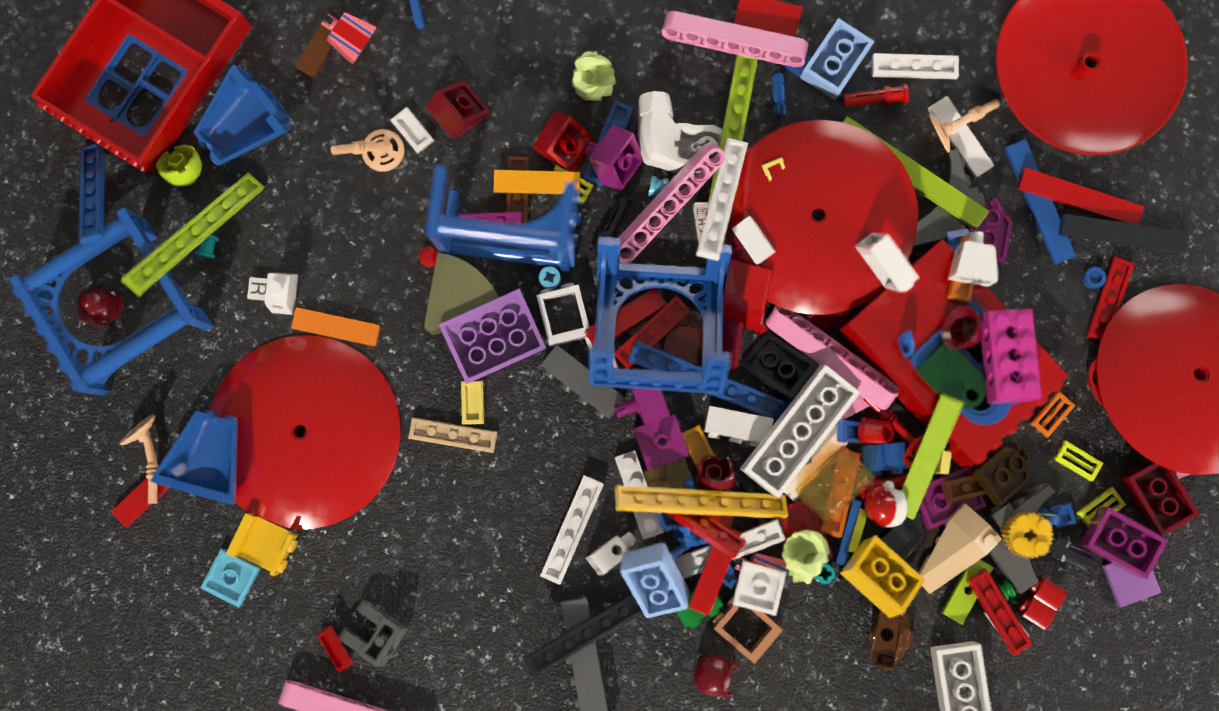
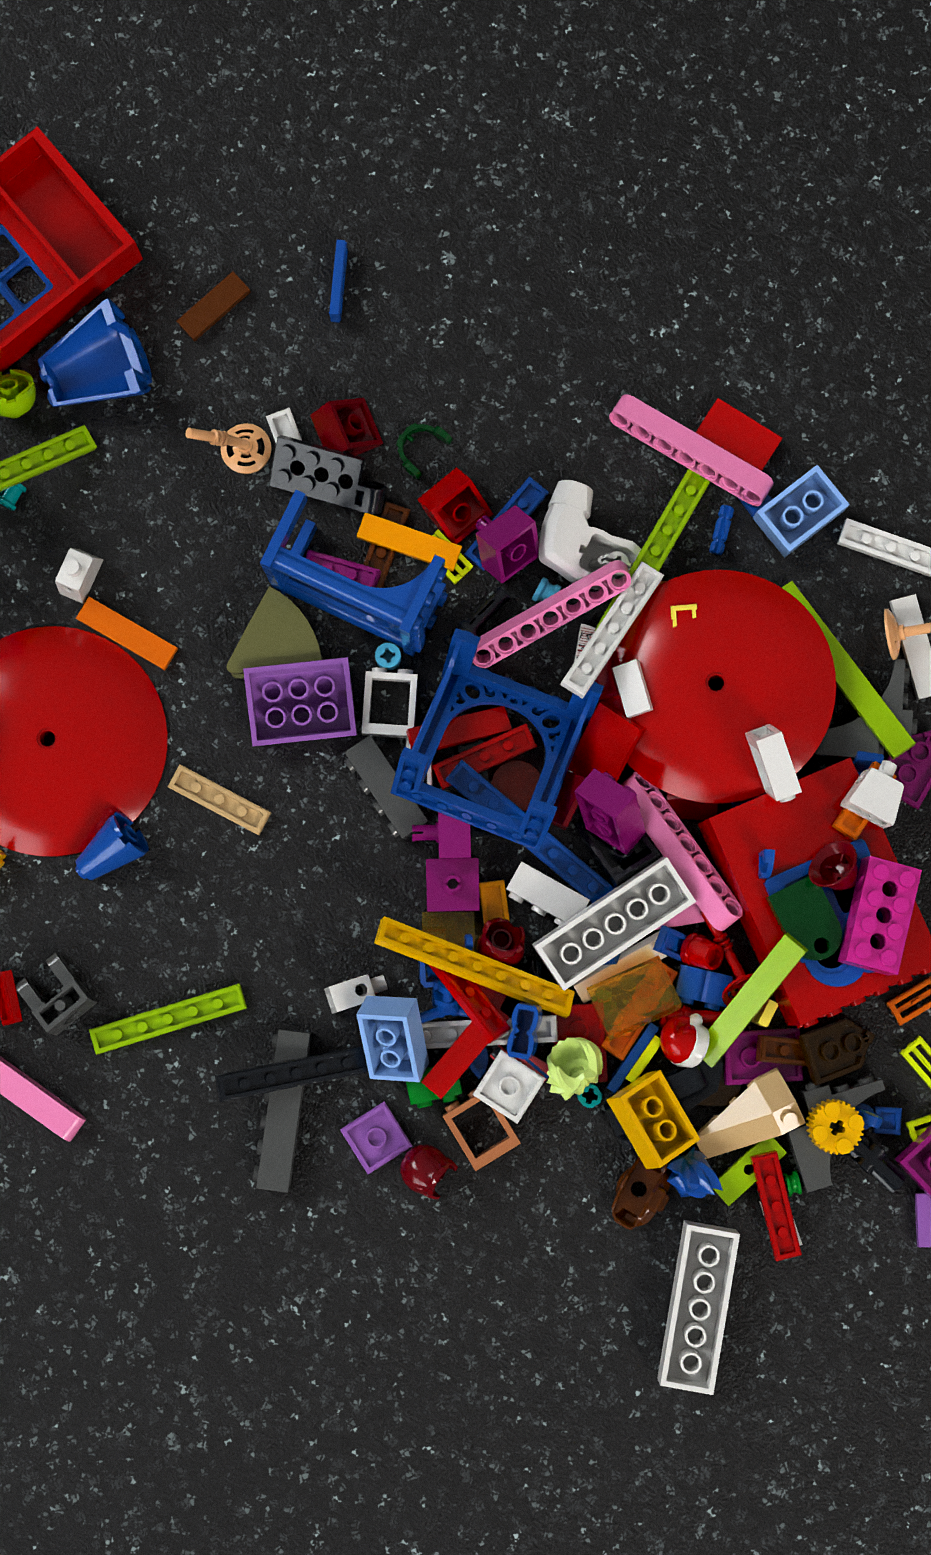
camera: 20 degrees right, 0 degrees up
(257, 288) = (51, 561): white tile -> none
(348, 34) = (249, 304): torso -> none
(379, 501) = (111, 848): none -> blue cone
(428, 256) = (257, 587): red tile -> none
(469, 623) = (167, 1018): none -> lime tile
(472, 402) = (253, 770): light yellow tile -> none
(487, 157) = (361, 496): none -> hinge
(531, 88) = (437, 432): none -> dark green piece
(572, 530) = (319, 951): white plate -> none
(593, 76) = (513, 441): yellowish green hair -> none
(633, 476) = (409, 913): white plate -> none
(665, 662) = (376, 1137): none -> medium lavender tile
(759, 547) = (523, 1039): none -> blue brick
(768, 342) = (610, 810): none -> magenta brick
(885, 95) = (845, 571): red pin -> none
(928, 610) = (693, 1175): none -> blue hair
(1042, 603) = (829, 1211): red brick -> none

